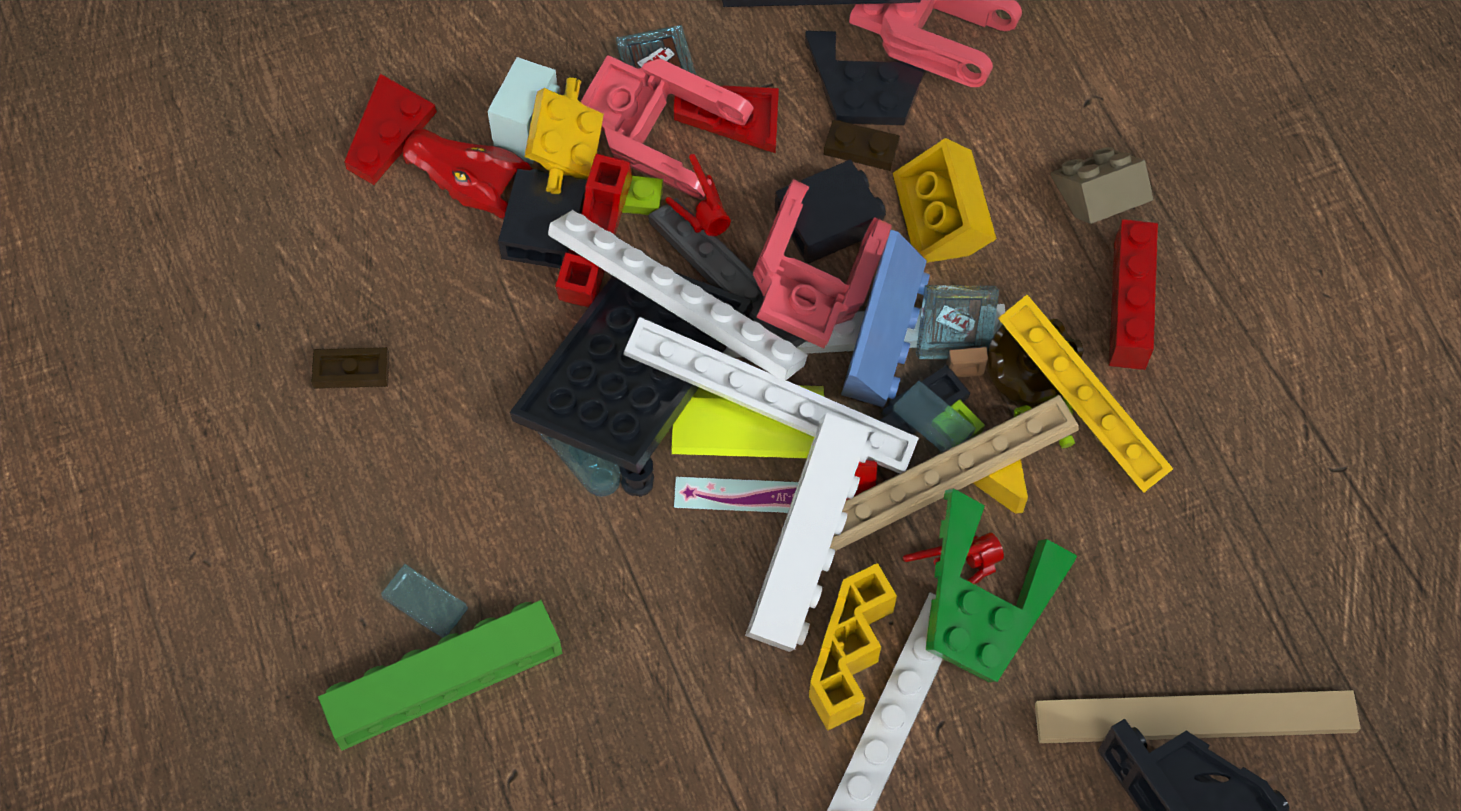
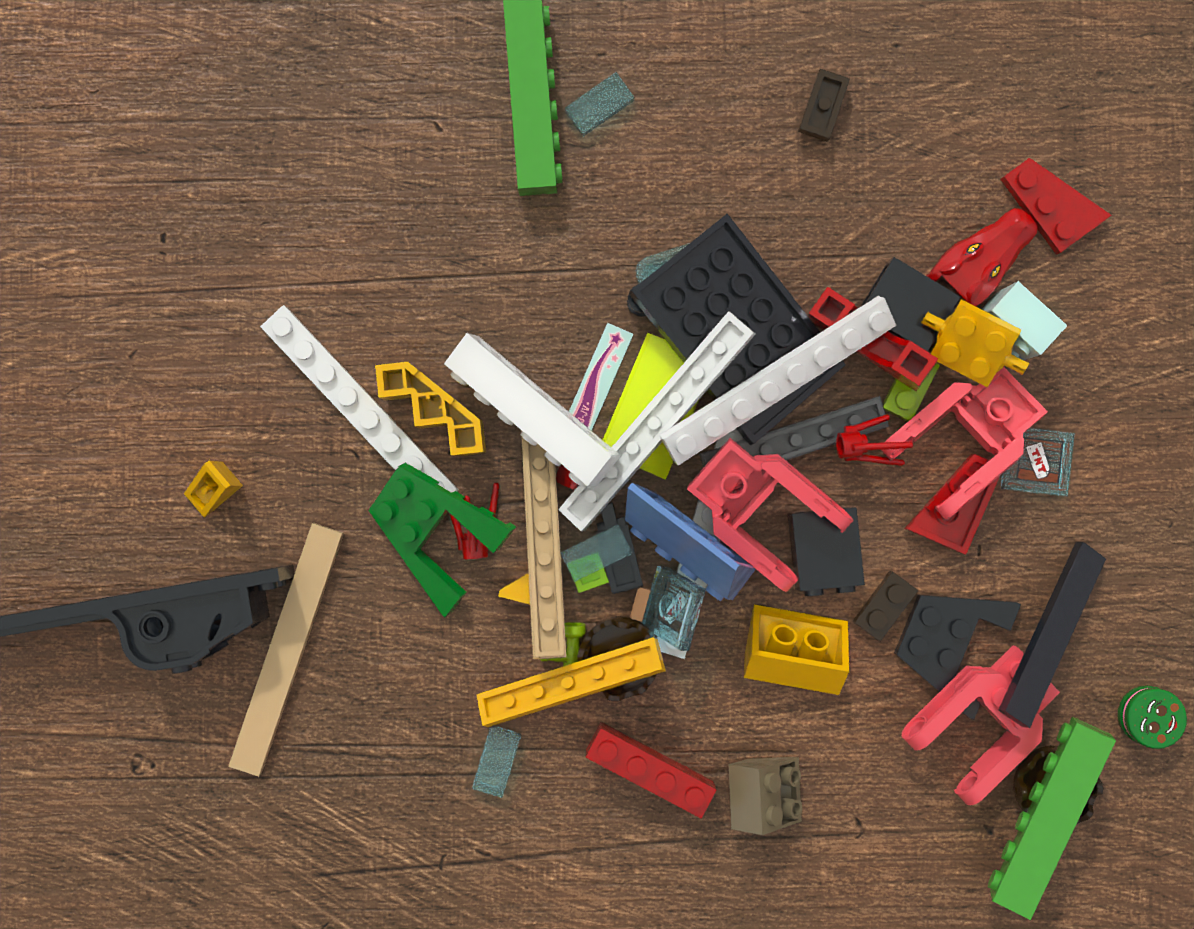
camera: 110 degrees right, 25 degrees up
(1203, 449) = (496, 761): none -> clear light blue tile

